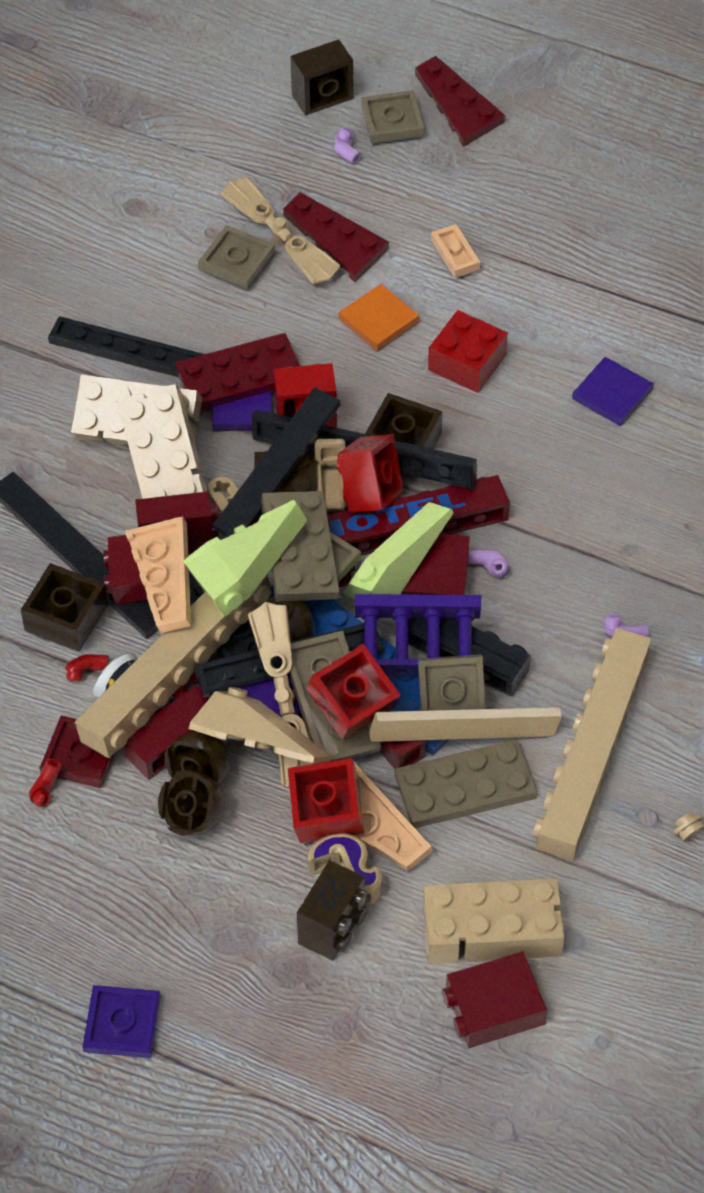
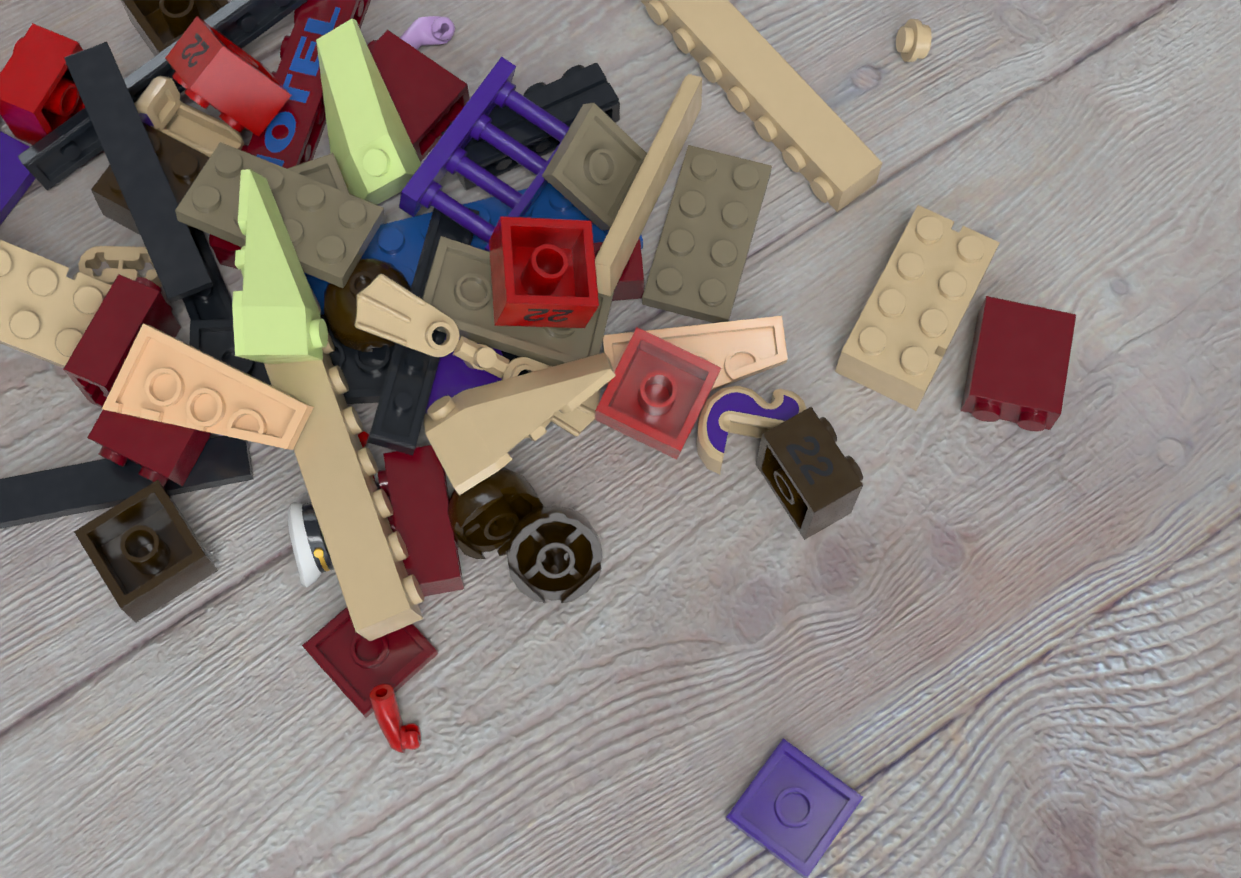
camera: 60 degrees left, 15 degrees up
(85, 662) = (241, 574): red arm -> none

